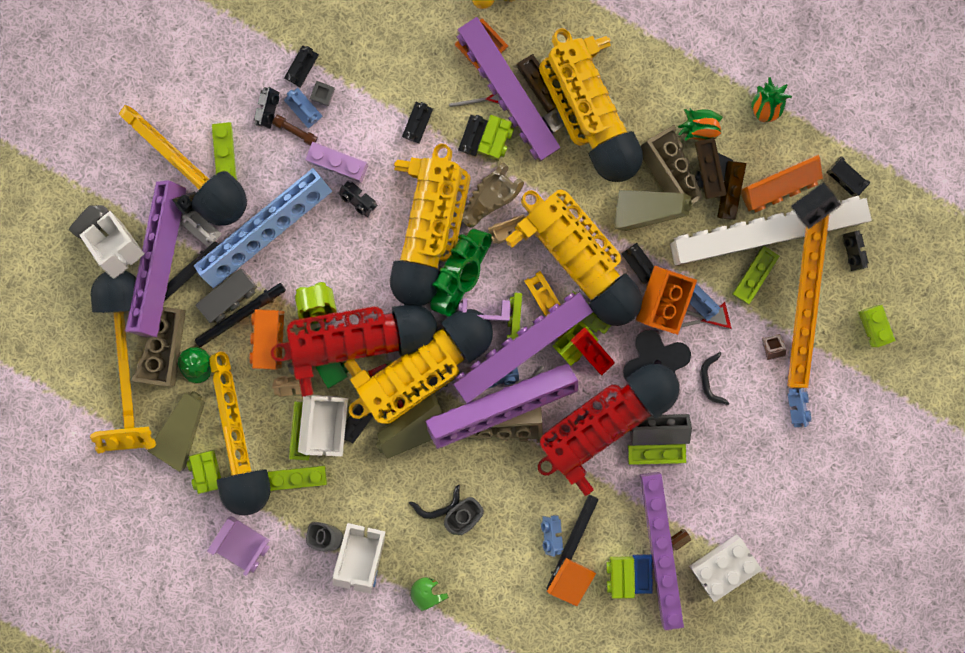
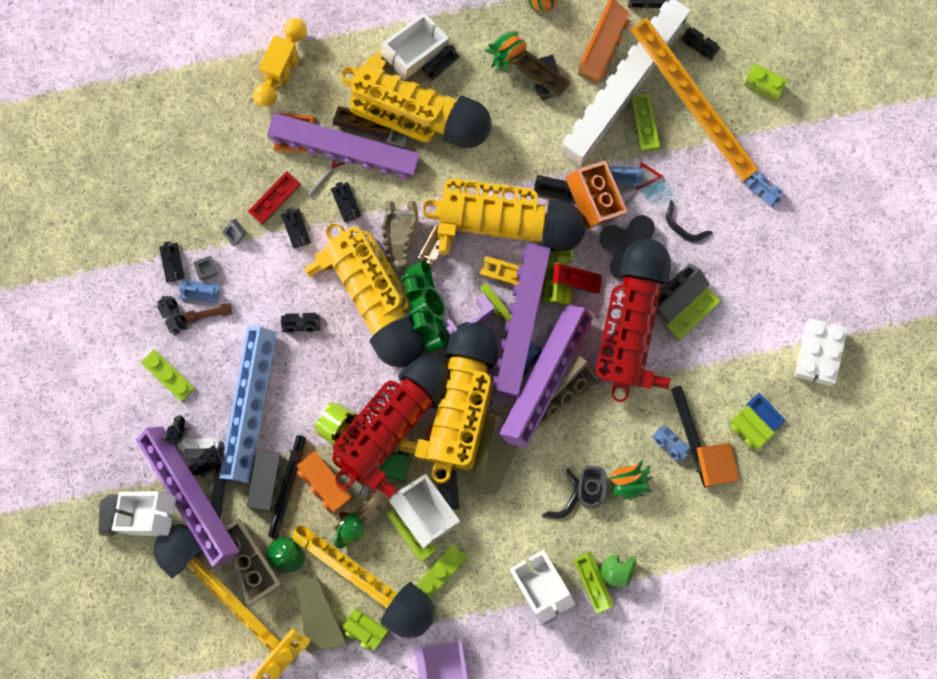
camera: 35 degrees left, 10 degrees down
(194, 244) = (206, 462): none -> black hinge
(219, 199) = (197, 409): piece -> none
(256, 389) = (348, 530): none -> green piece
(323, 537) = (500, 596): dark grey piece -> none
(336, 162) = (261, 308): lavender brick -> none
(368, 84) = (234, 232): none -> dark grey plate
(402, 585) = (593, 582): none -> lime plate
(421, 84) = (274, 198): none -> red plate
(494, 138) = (363, 189): lime brick -> none
(495, 537) = (631, 481): none -> green hair
(632, 58) = (414, 46): none -> white piece
(642, 87) = (441, 62): none -> black hinge
(646, 208) = (523, 140): olive slope -> none
(661, 550) = (762, 381): medium lavender brick -> none
(668, 164) = (514, 100): dark tan wedge -> none
(680, 539) = (769, 362): reddish brown slope -> none
(715, 332) = (653, 188): none -> clear light blue pin
(733, 186) = (568, 70): dark brown plate -> none
(774, 347) = (706, 162): reddish brown slope -> none
(816, 205) = (640, 30): black hinge -> none

